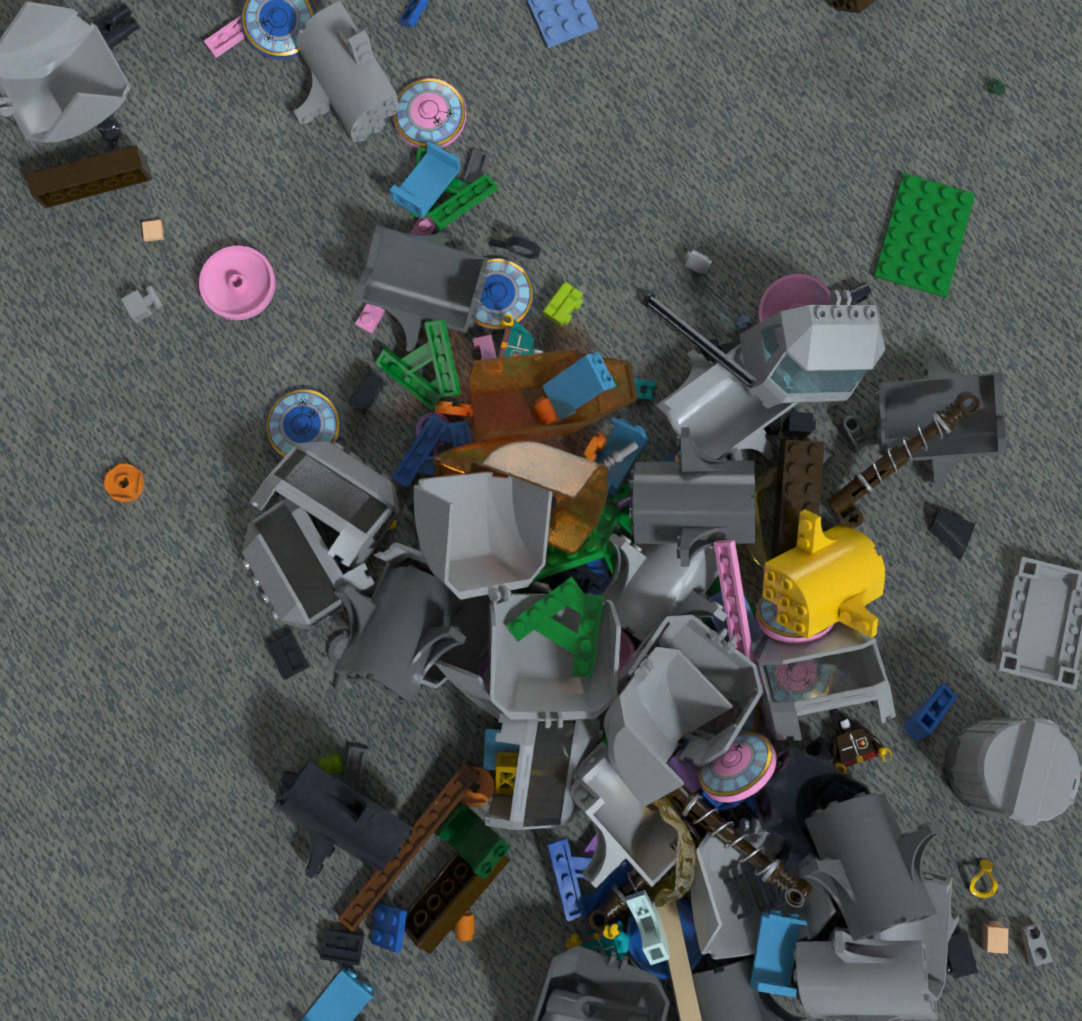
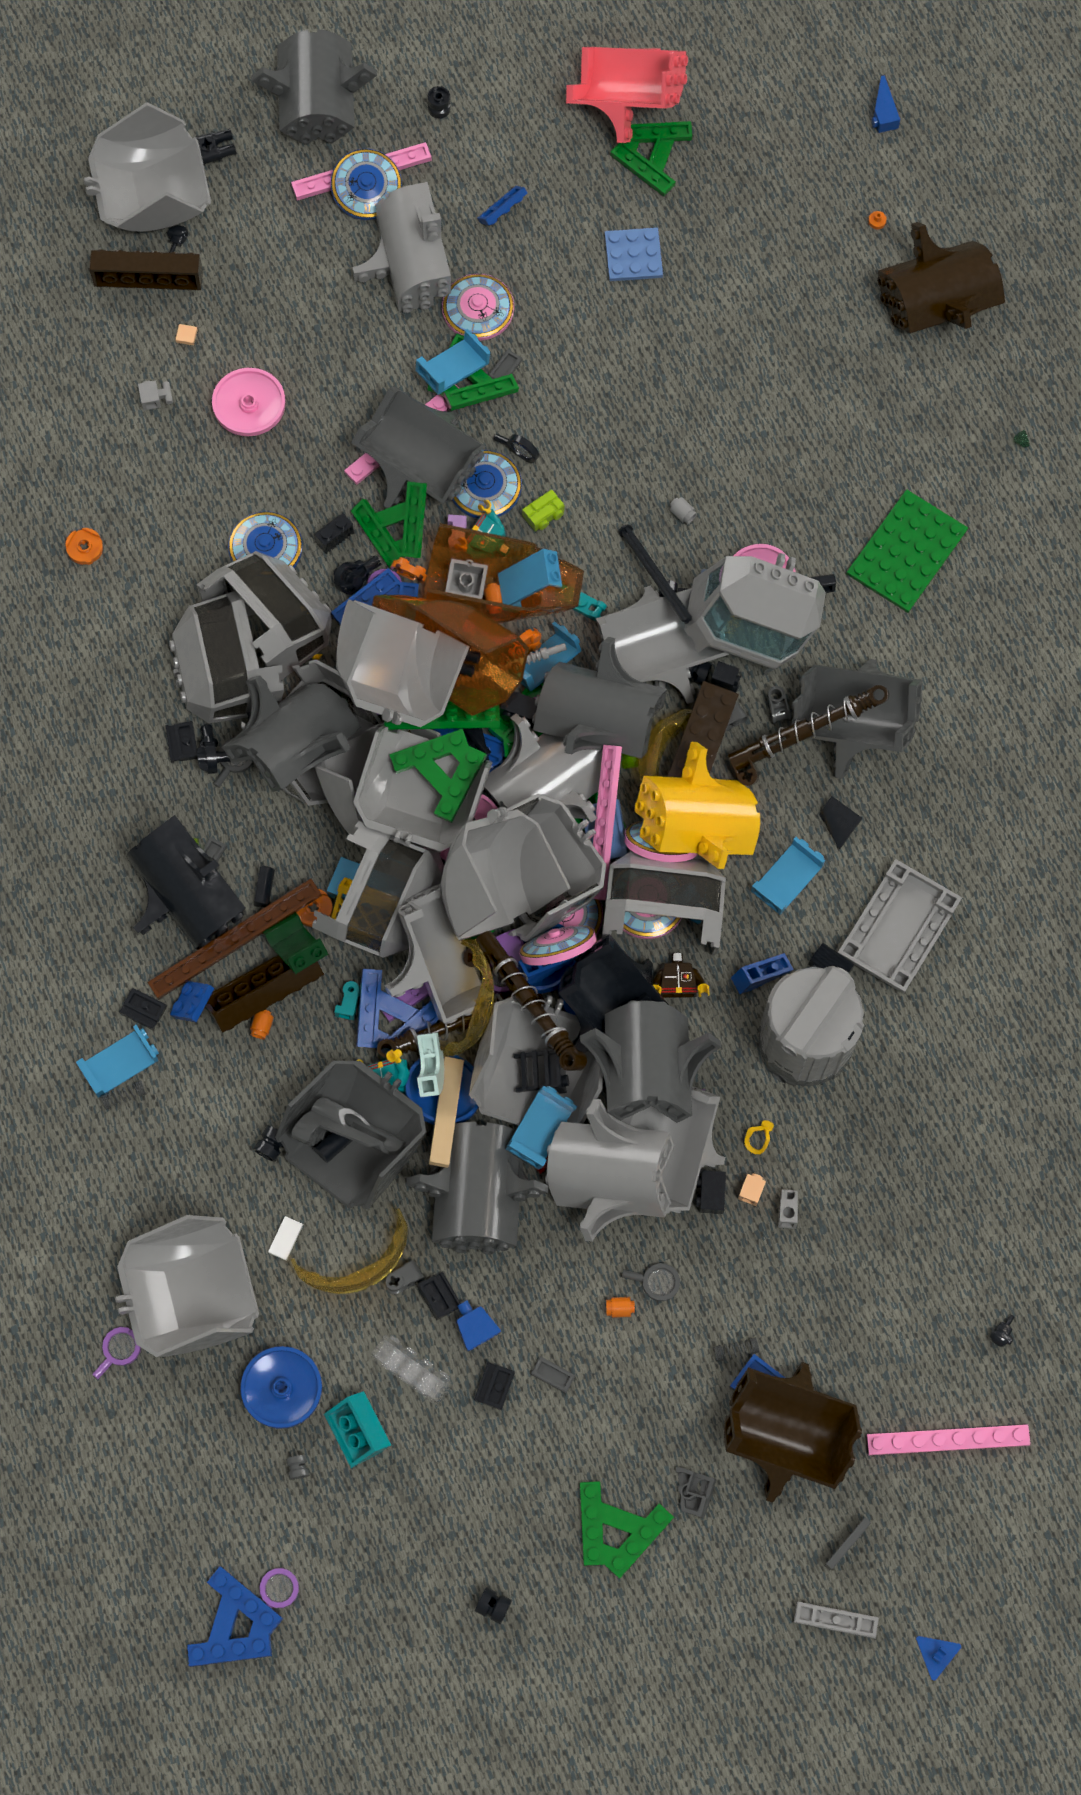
camera: 15 degrees right, 10 degrees down
(317, 664) = (207, 754): none -> black pin
(402, 435) = (354, 580): none -> black pin
(419, 781) = (264, 886): none -> black brick
(514, 406) = (466, 578): none -> light grey brick
(543, 875) = (350, 1001): none -> teal leg
(613, 520) = (518, 704): none -> black brick
(921, 603) = (788, 875): none -> dark azure panel
(993, 682) = (828, 957): none -> black brick

